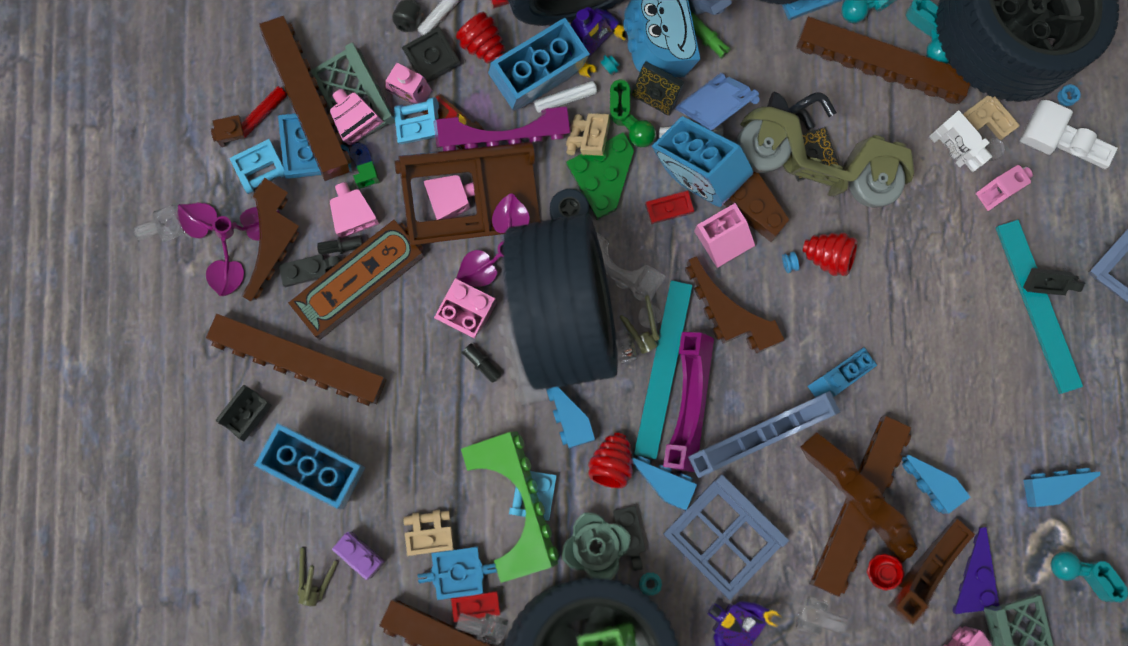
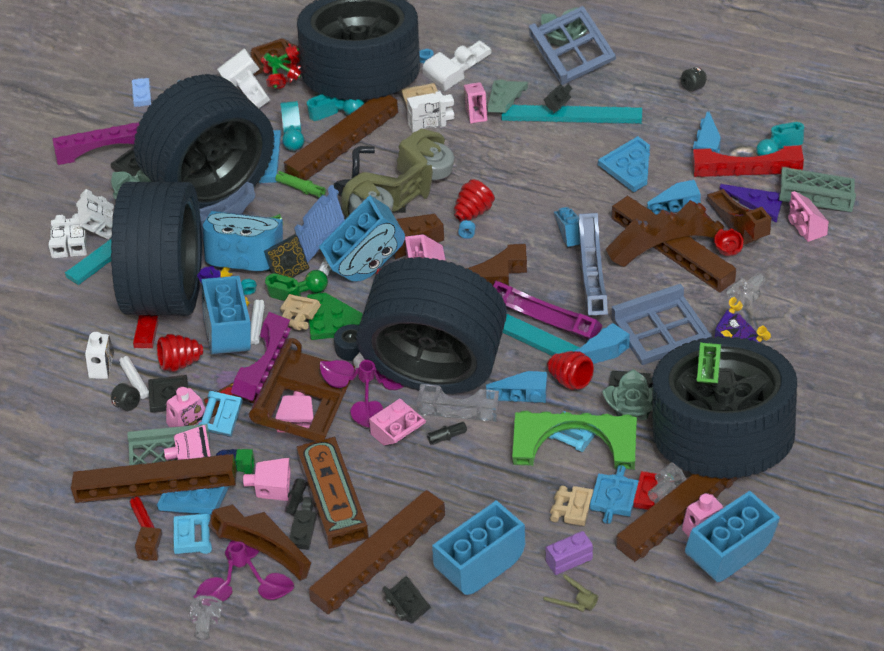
camera: 65 degrees left, 35 degrees down
(789, 56) = (297, 183): none -> bright green pin
(977, 406) = (628, 163): none -> dark azure plate
(1014, 501) = (710, 163): none -> red arch
(1035, 214) = (504, 94): none -> sand green wing

